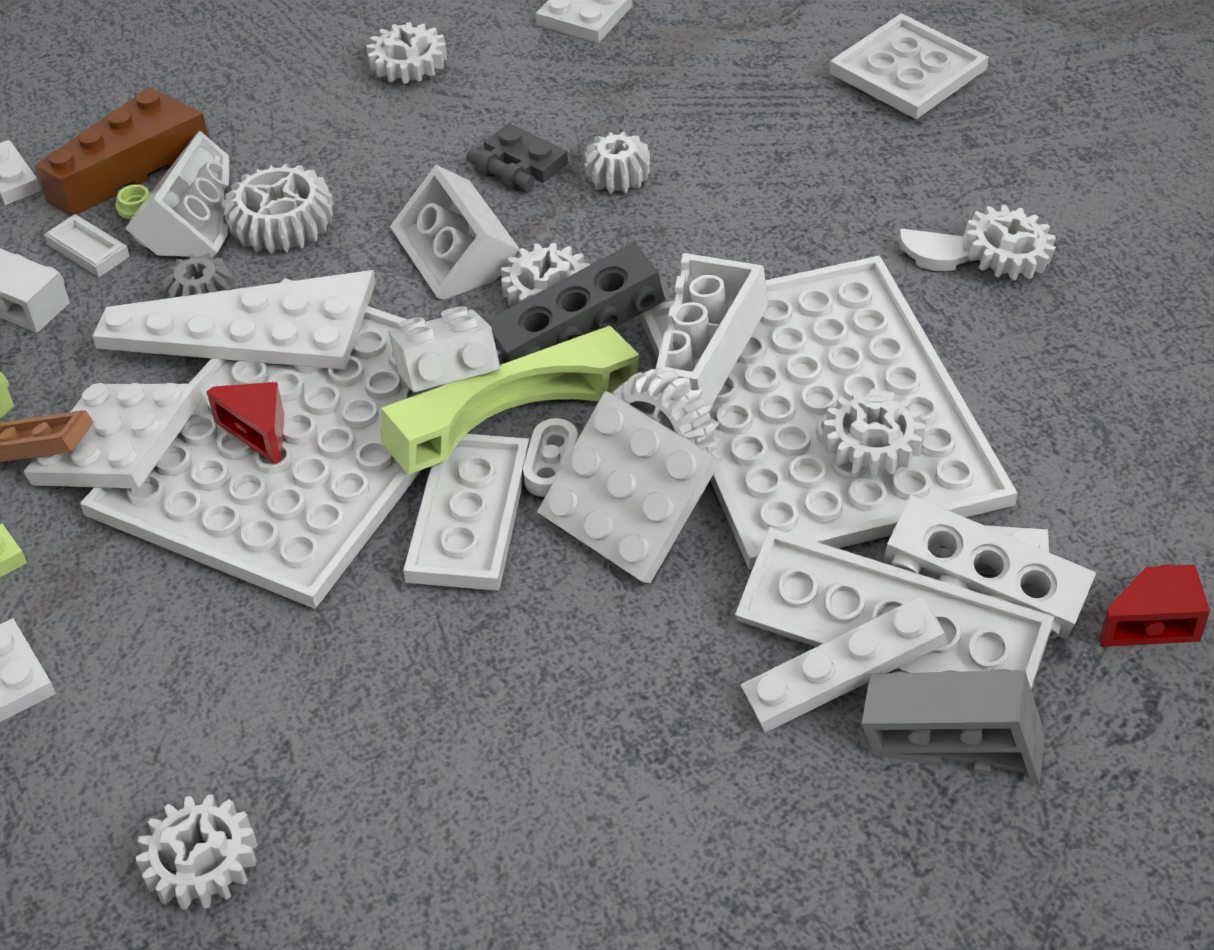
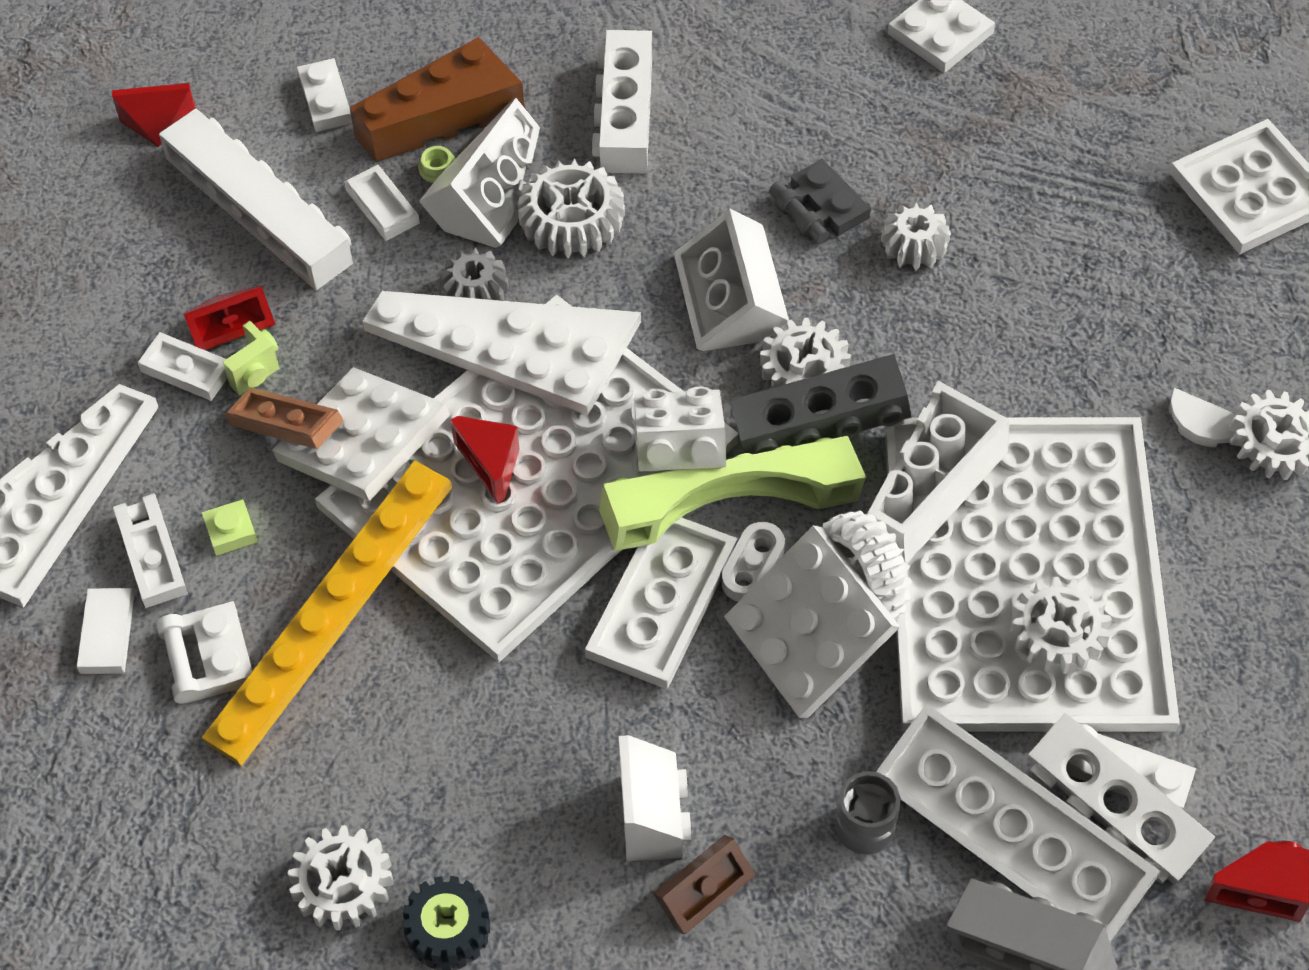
camera: 15 degrees right, 10 degrees up
(115, 609) = (326, 613): none -> yellow plate
(305, 115) = (625, 101): none -> white brick
(333, 885) = (442, 939): none -> black wheel
(406, 52) = (744, 44): white gear -> none
(515, 690) = (652, 802): none -> white slope
(595, 756) = (704, 884): none -> reddish brown plate
(741, 641) = (867, 812): none -> flat silver wheel
(844, 663) = (953, 858): white plate -> none

